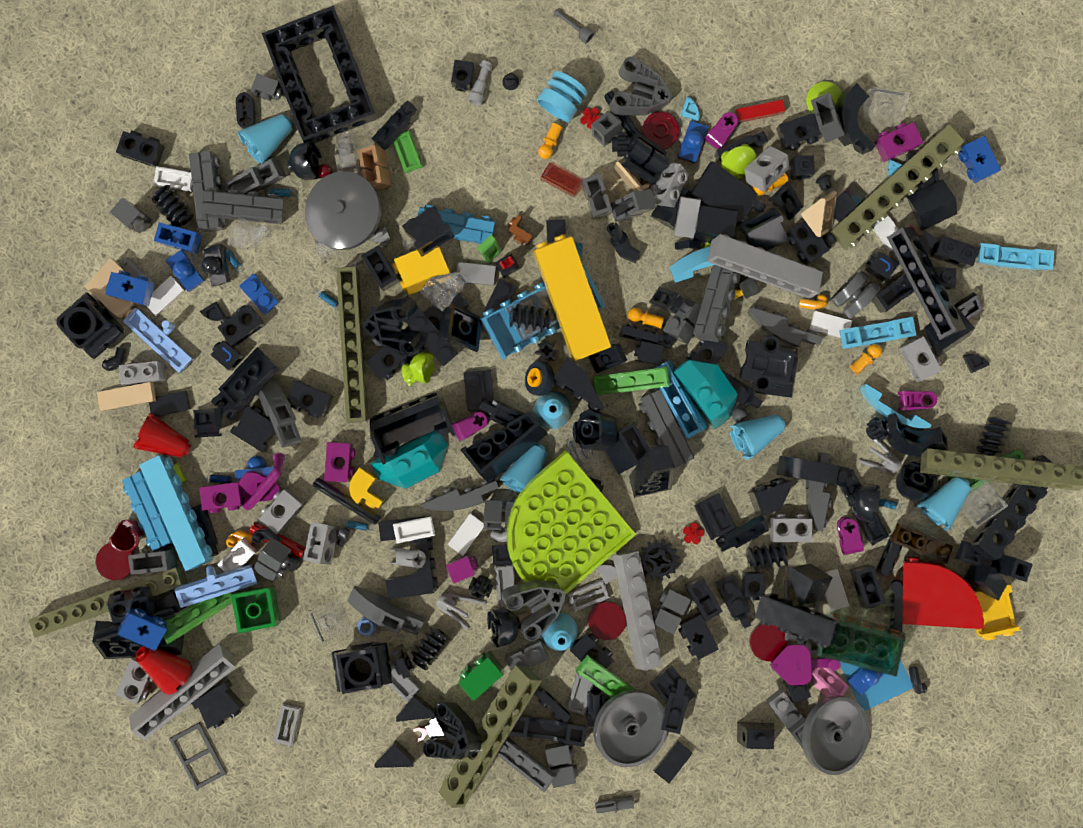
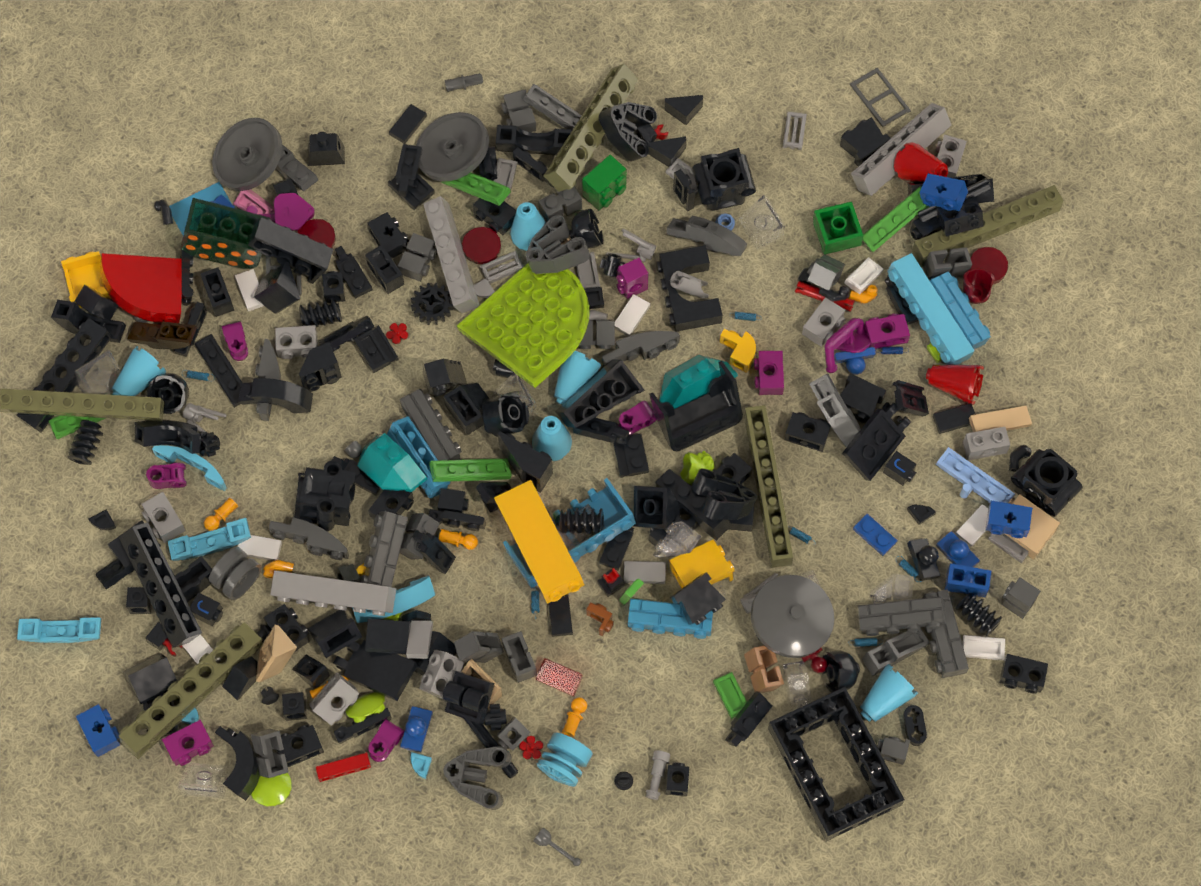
camera: 175 degrees right, 20 degrees down
(215, 585) = (880, 245): light blue plate -> none
(243, 330) = (885, 496): black brick -> none
(321, 543) = (779, 292): light grey brick -> none
(343, 535) = (758, 303): black tile -> none
(346, 501) = (760, 338): black axle -> none
(380, 268) = (747, 565): black brick -> none
(414, 529) = (684, 309): white tile -> none
(430, 648) = (658, 205): black piece -> none
(539, 378) = (567, 467): black wheel -> none
(550, 349) = (566, 490): black gear -> none
(622, 244) = (488, 611): black arm -> none
(661, 129) = (452, 738): dark red tile -> none
(756, 434) = (334, 429): medium azure cone -> none
(865, 502) = (221, 367): black cylinder -> none
(954, 252) = (126, 628): black brick -> none

